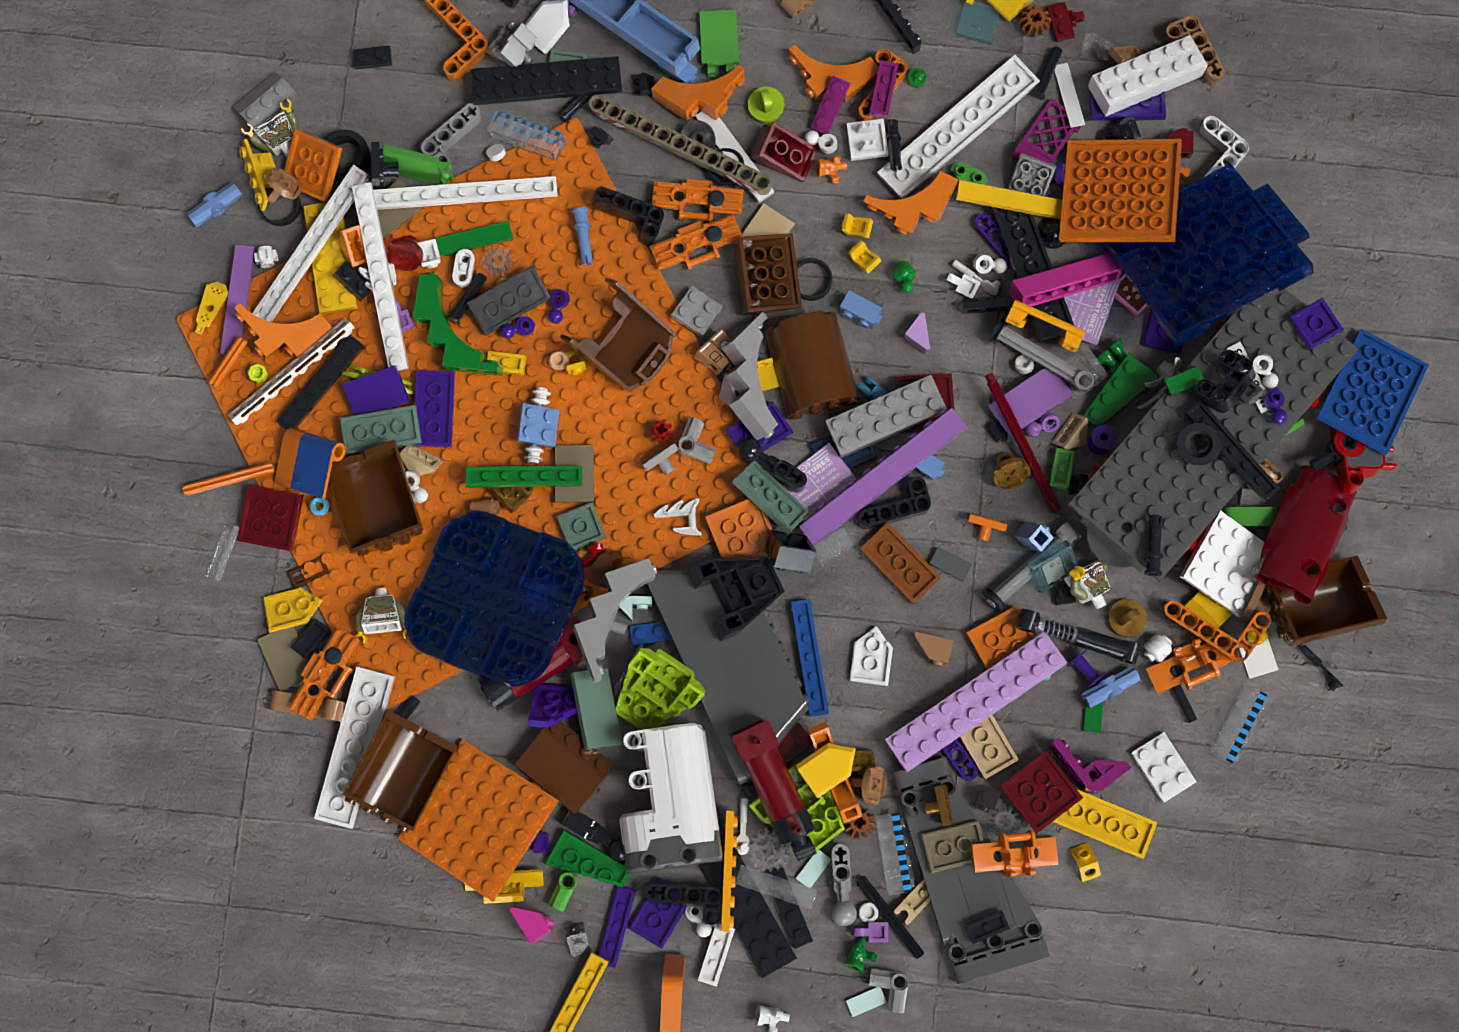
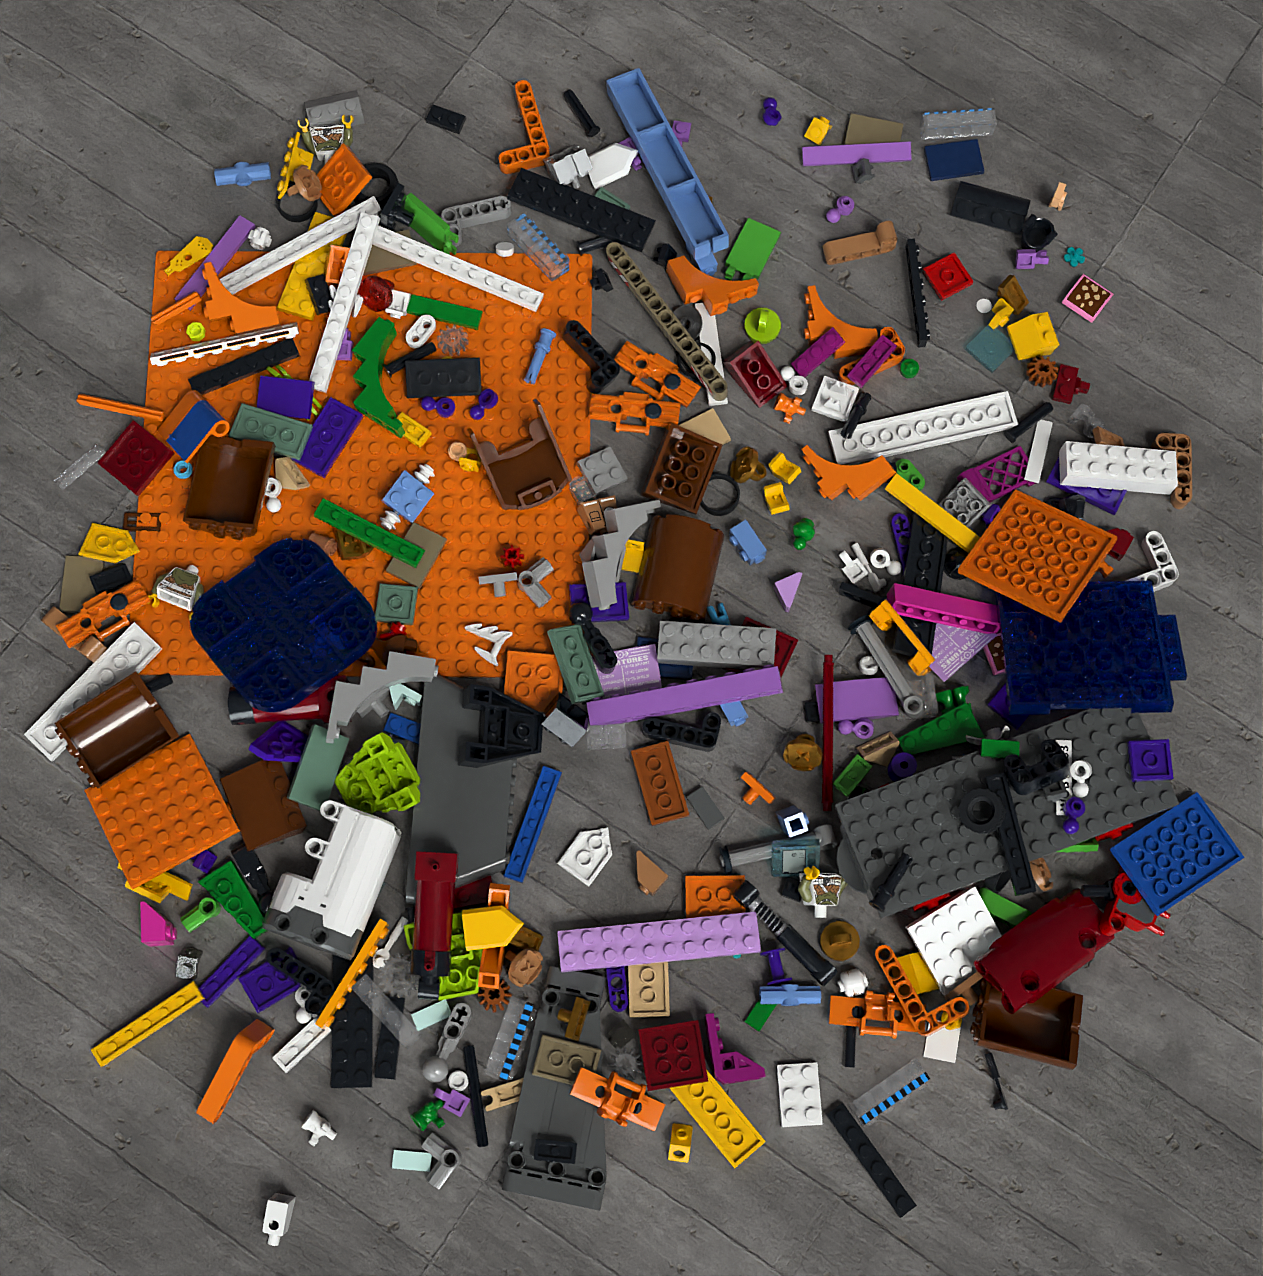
camera: 25 degrees right, 5 degrees down
(690, 339) = (581, 490): none -> clear brick
(822, 241) = (745, 466): none -> pearl gold tile
(1252, 789) = (871, 1160): none -> black plate

